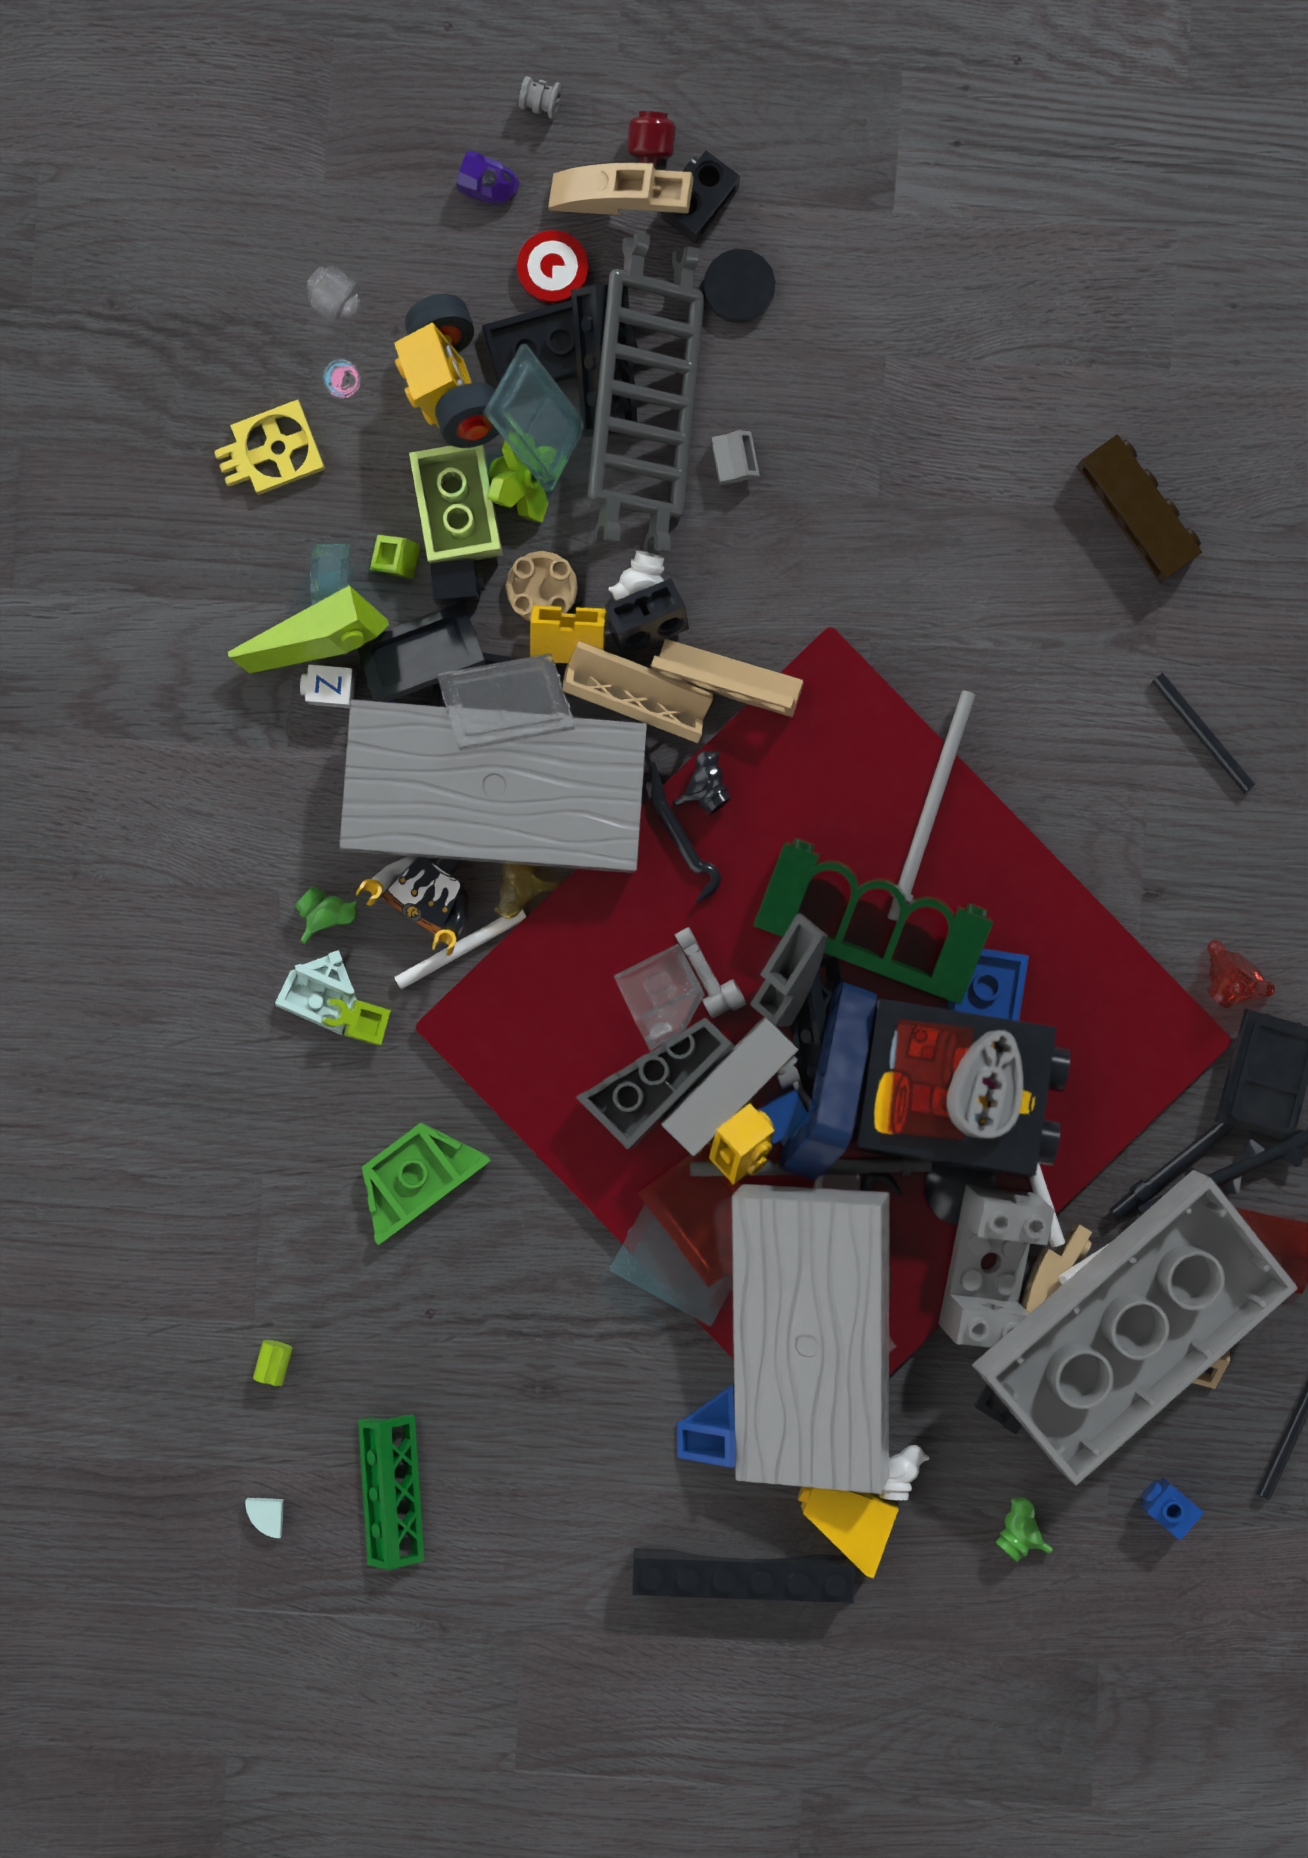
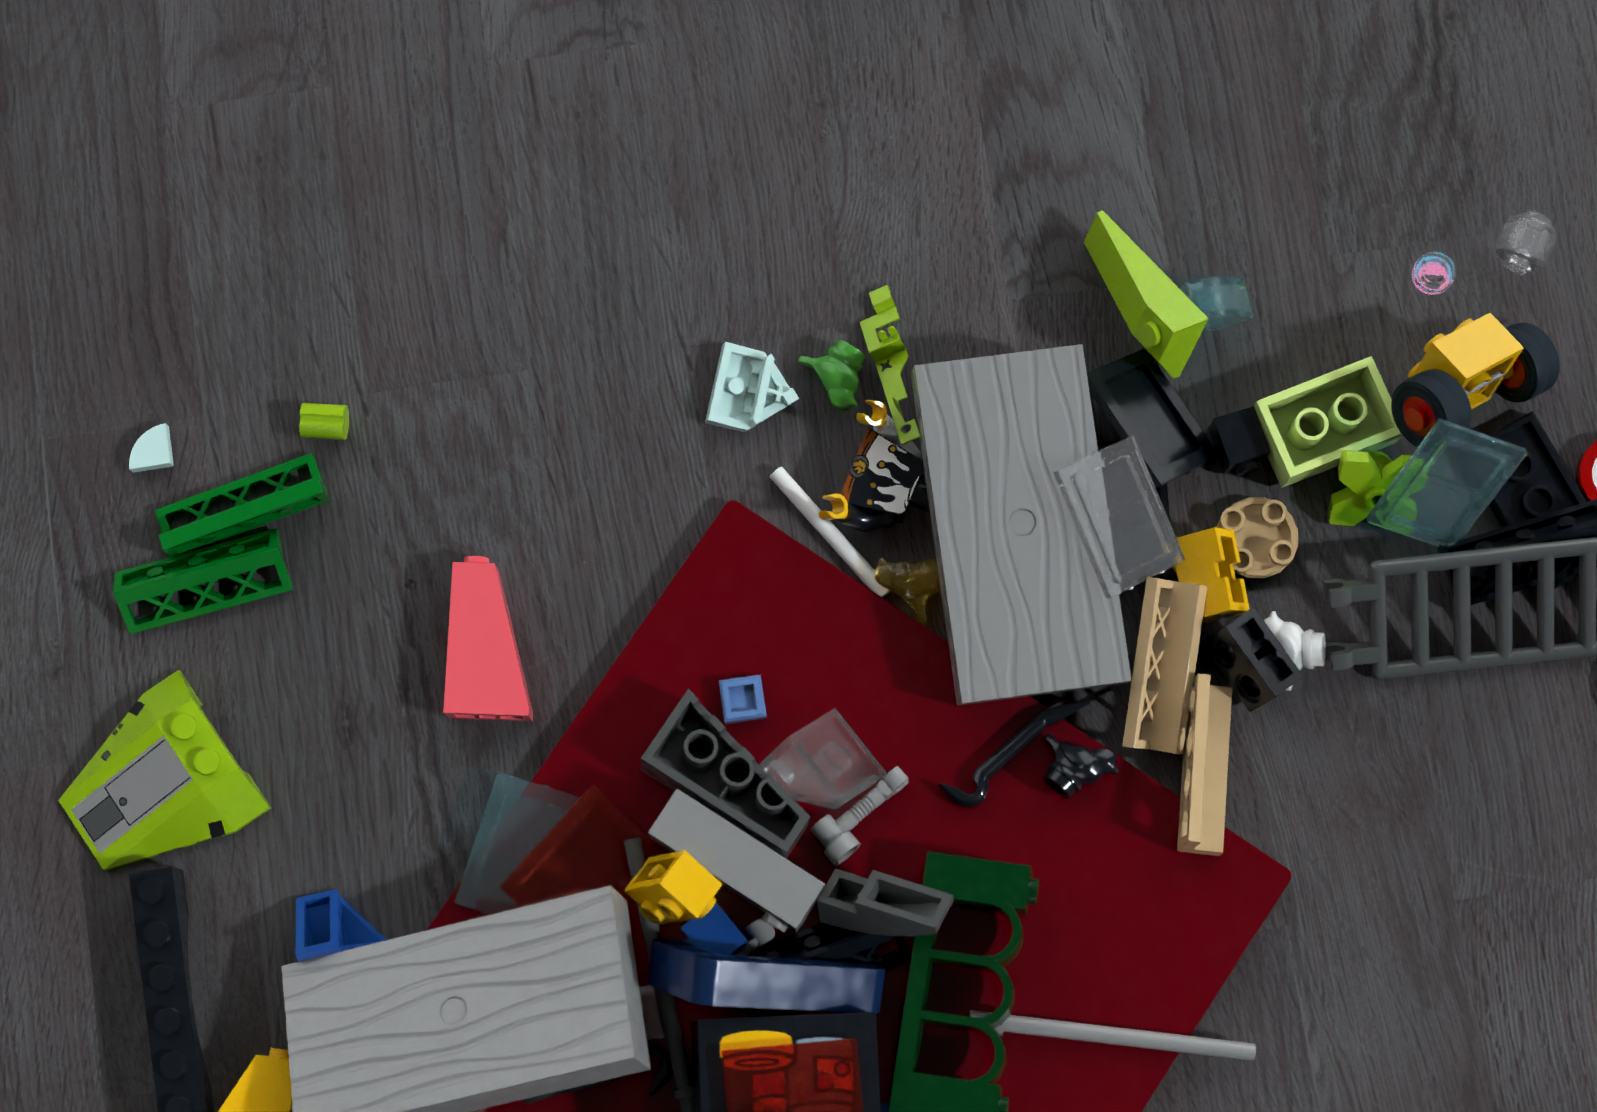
camera: 80 degrees right, 10 degrees down
(245, 460) = (1317, 189): light yellow piece -> none
(312, 861) = (888, 349): none -> lime piece
(328, 686) = (1091, 324): white brick -> none
(343, 1446) = (245, 514): none -> green fence
(362, 1021) = (725, 441): lime plate -> none
(395, 556) = (1251, 371): lime slope -> none
(415, 1176) = (562, 534): bright green wing -> none
(500, 1263) = (482, 654): none -> coral slope
(555, 1555) = (160, 782): none -> lime wedge
(590, 1052) = (742, 699): none -> medium blue tile
(734, 457) = (1458, 724): light grey piece -> none

